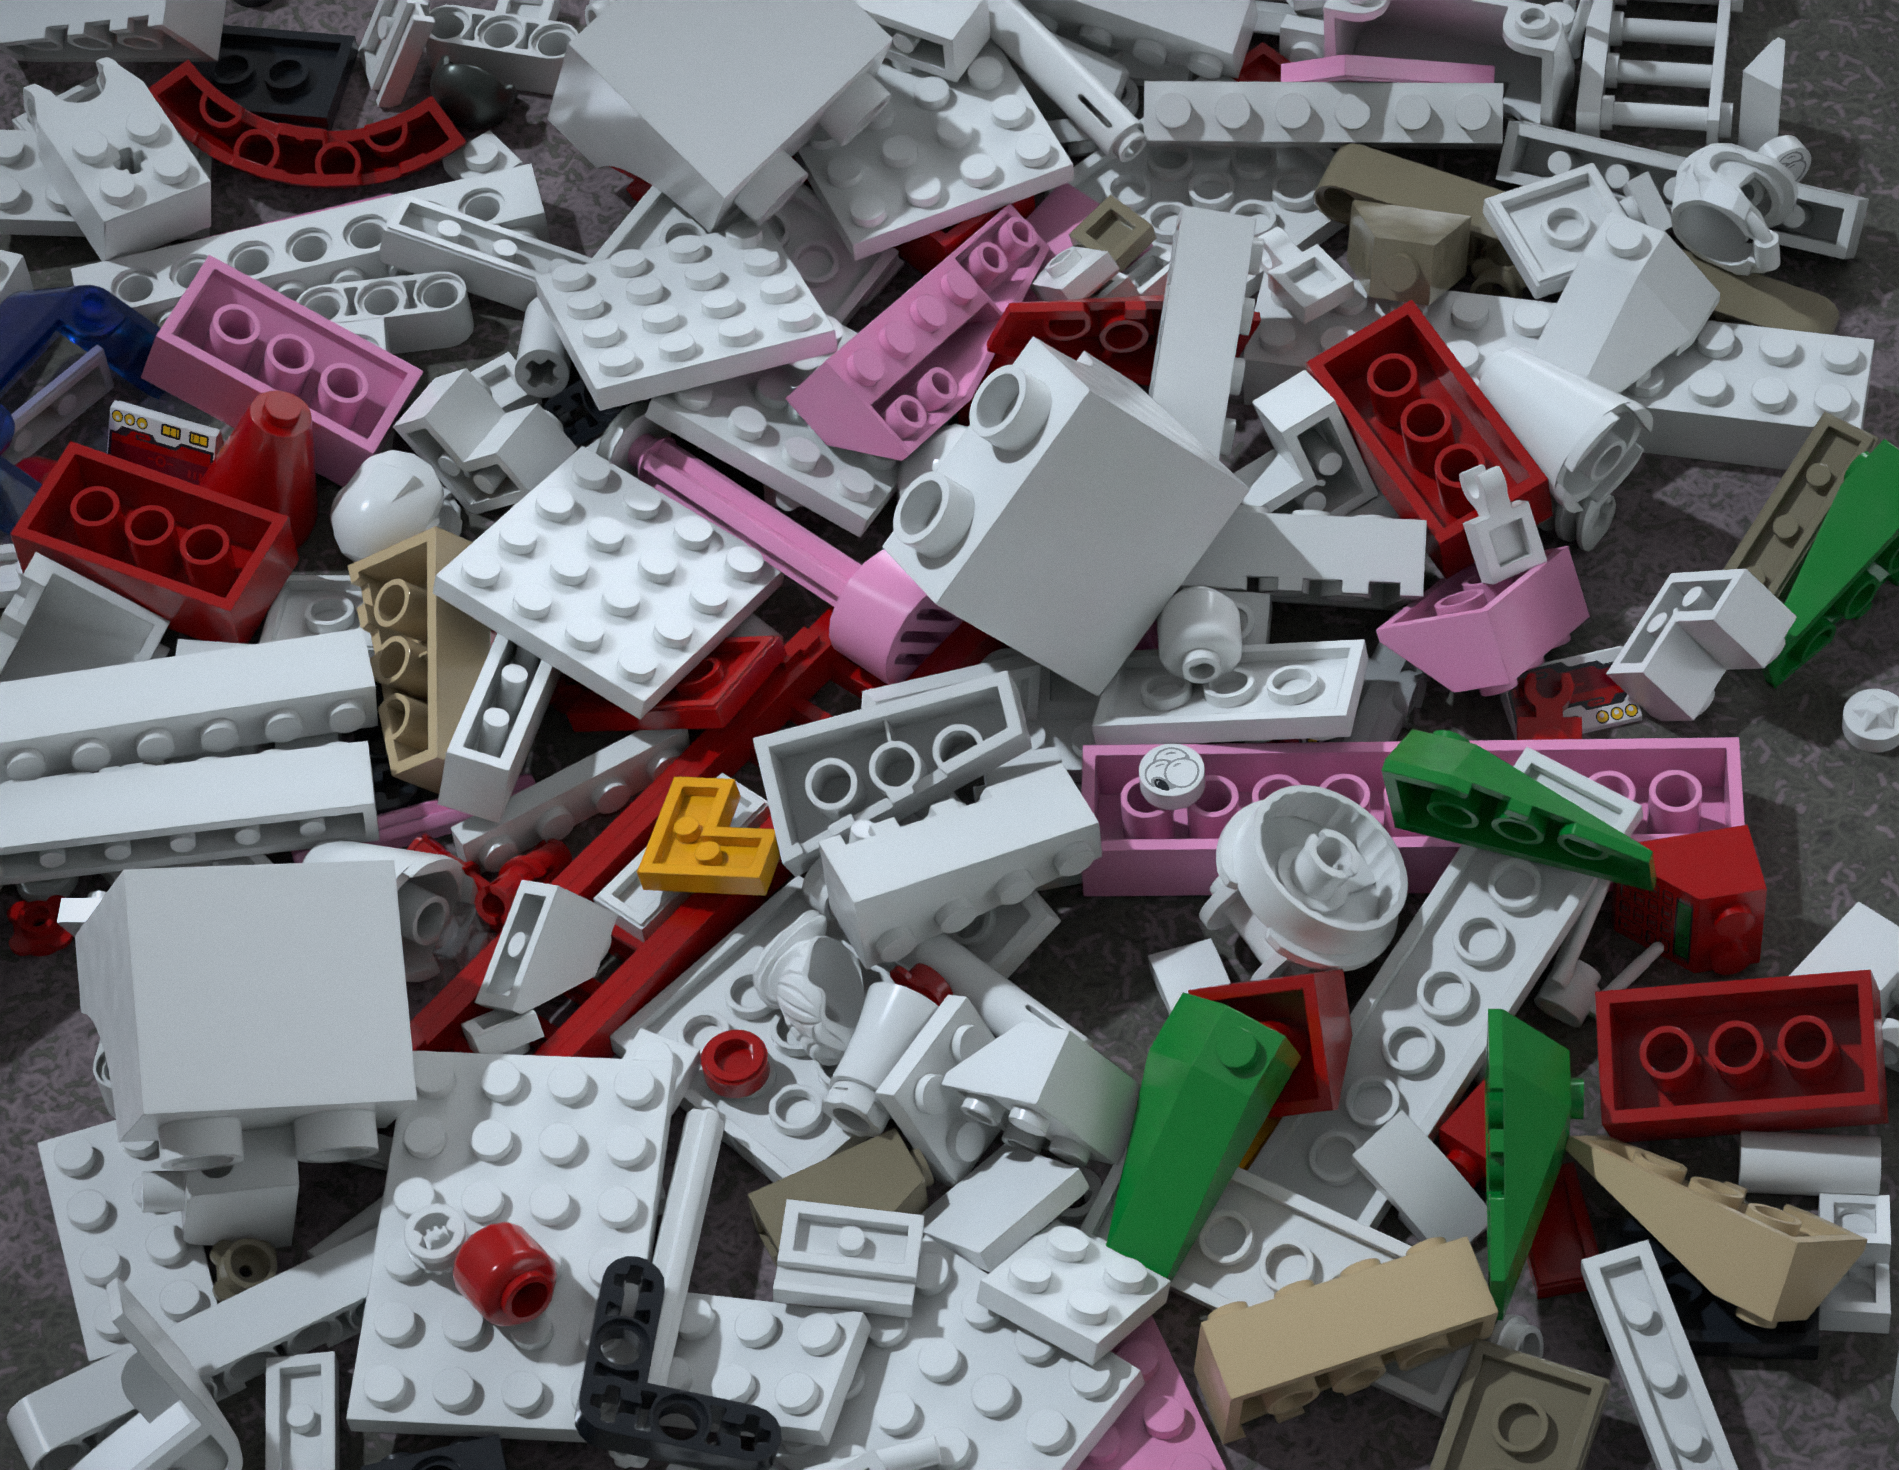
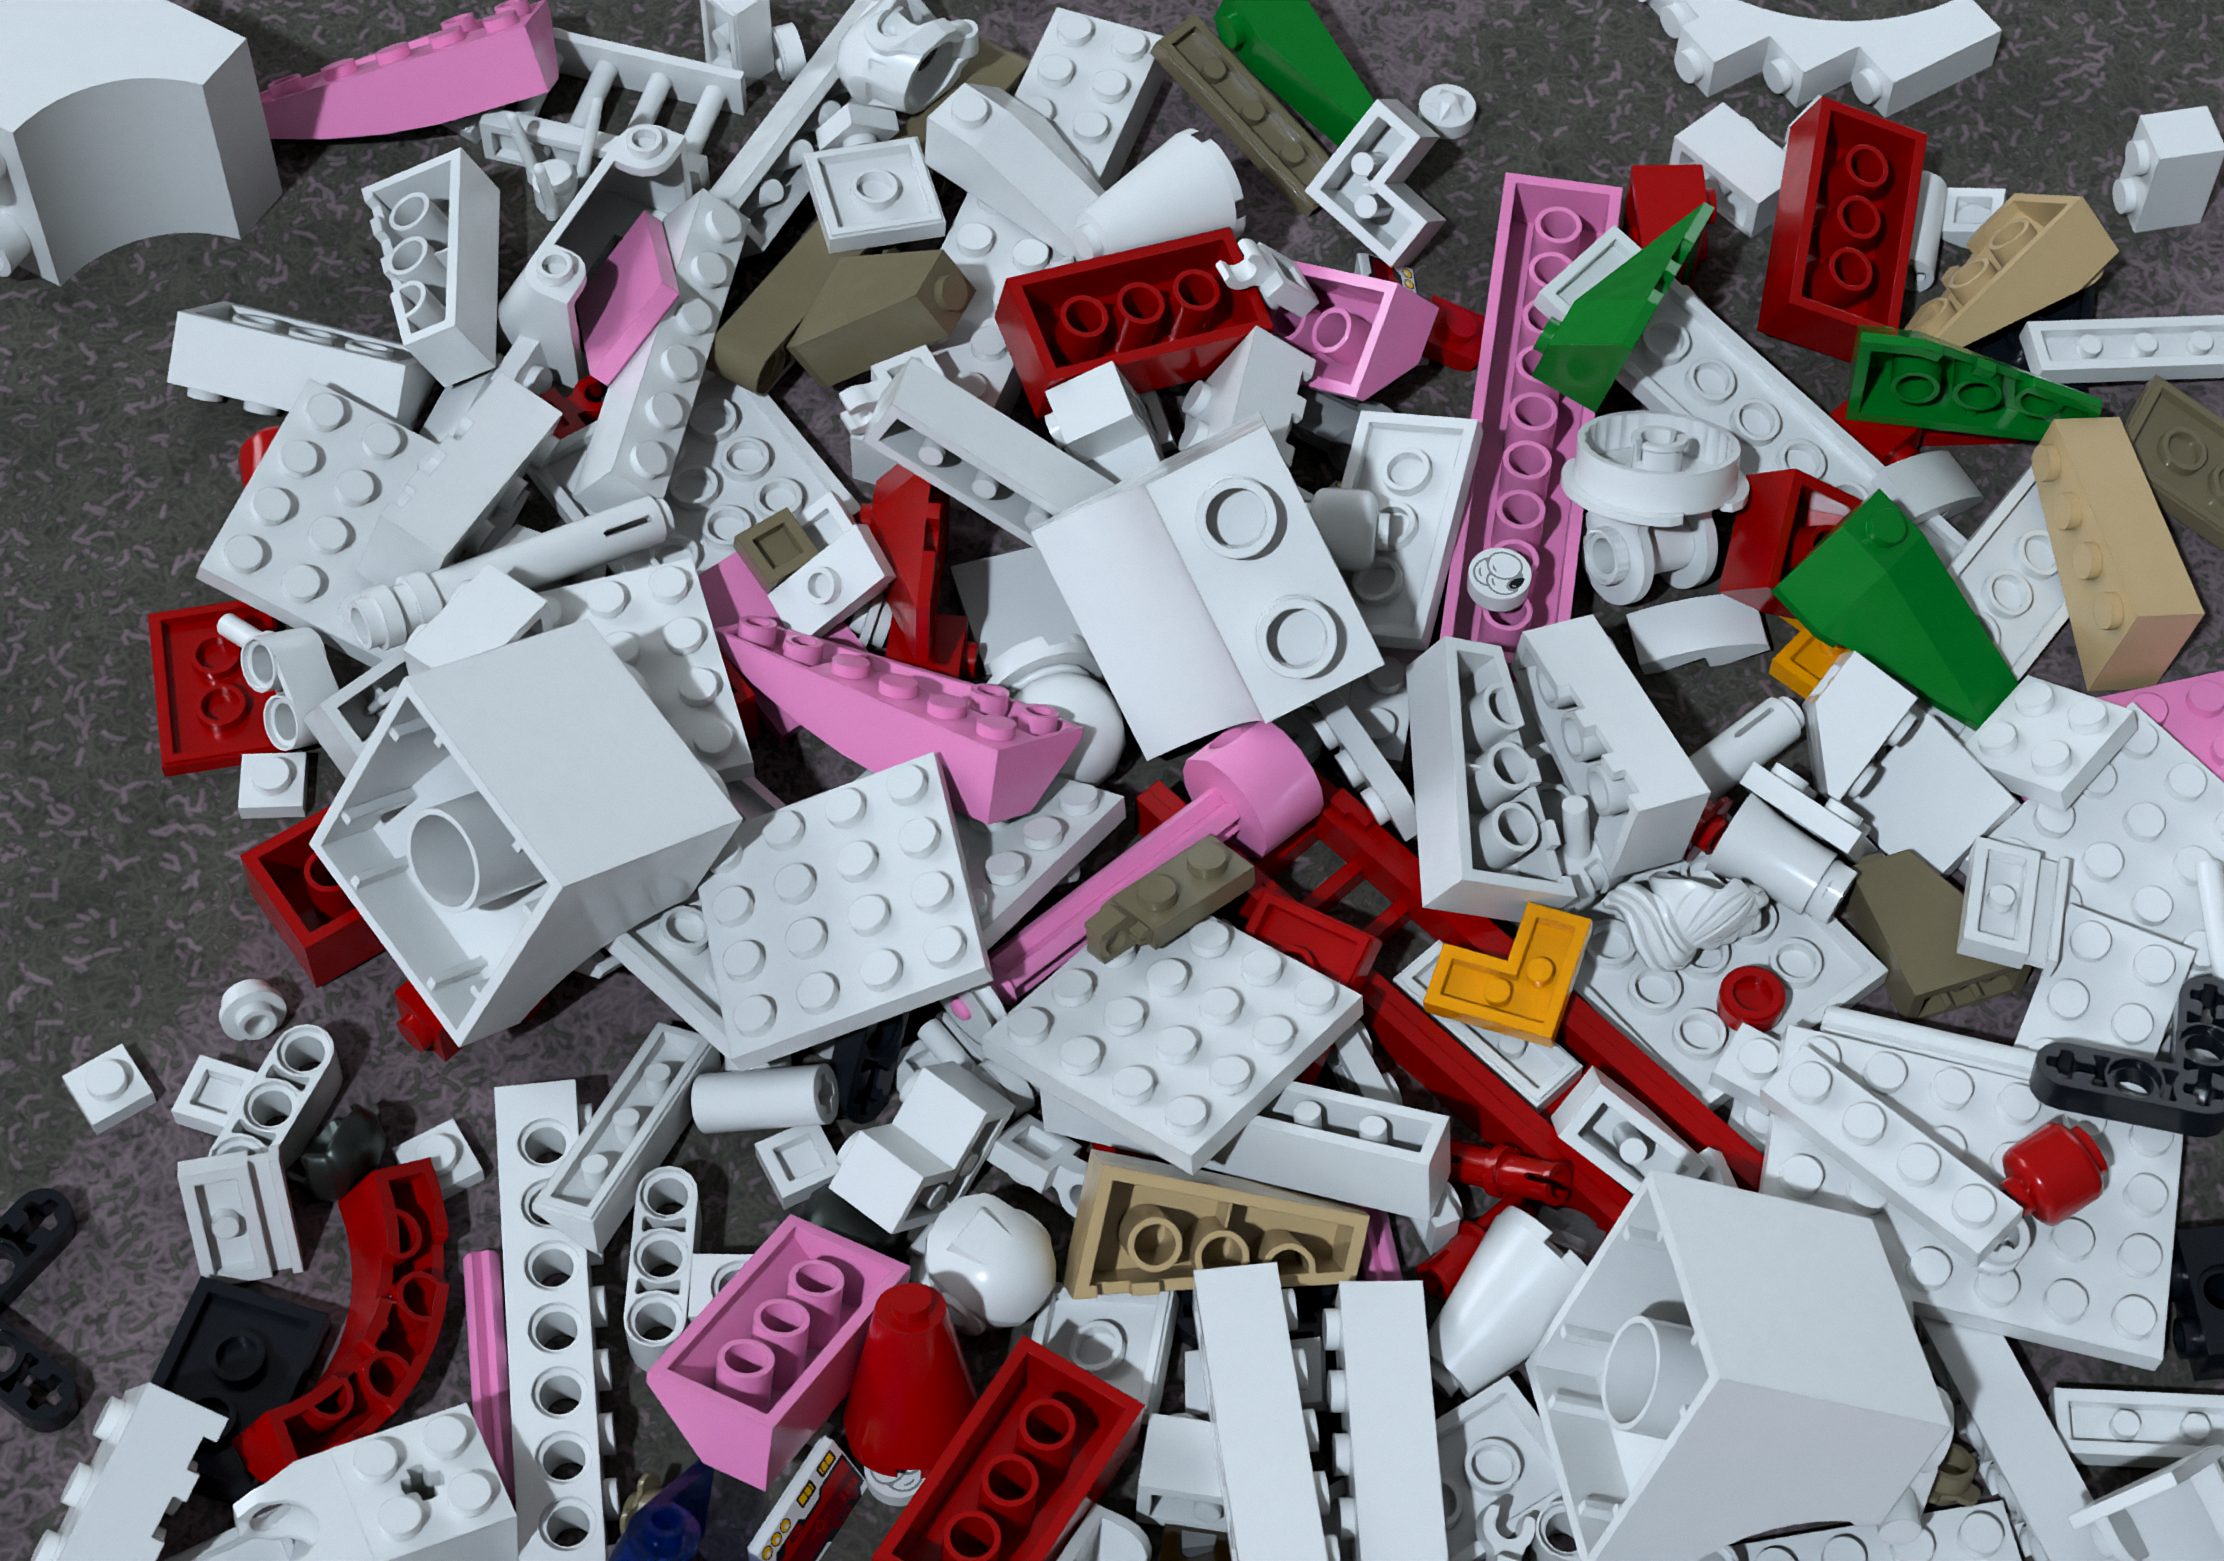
camera: 90 degrees left, 5 degrees up
(508, 1131) = (1891, 1155): none -> white plate
(743, 556) = (1169, 899): none -> dark tan hinge

